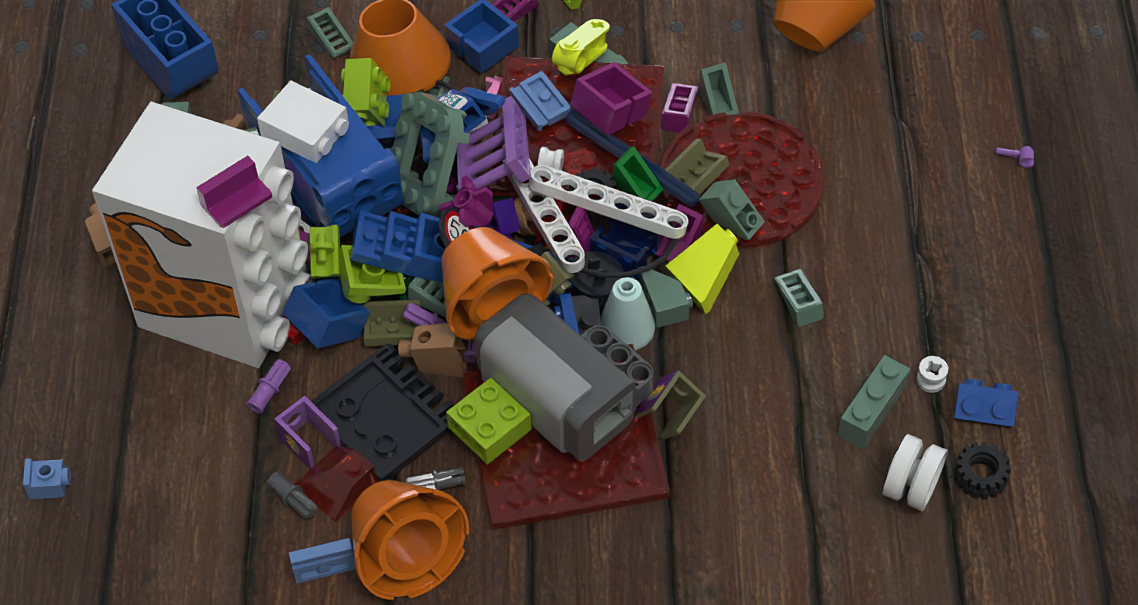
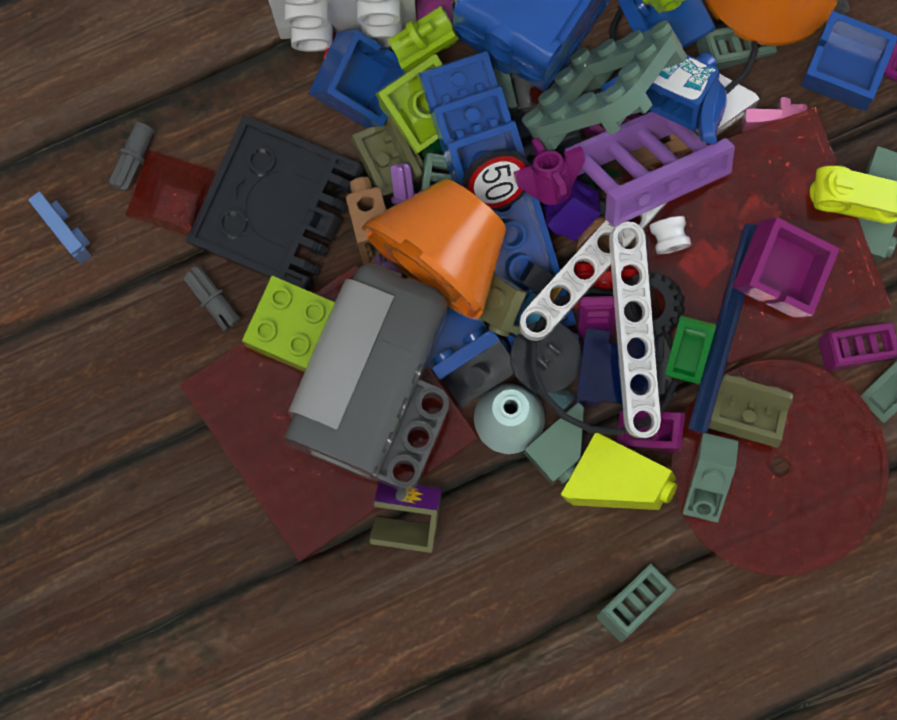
camera: 70 degrees right, 25 degrees up
(268, 386) = (254, 62): medium lavender axle -> none
(307, 412) = (192, 121): medium lavender piece -> none
(406, 538) = (107, 298): orange cone -> none
(540, 100) = (755, 181): medium blue plate -> none

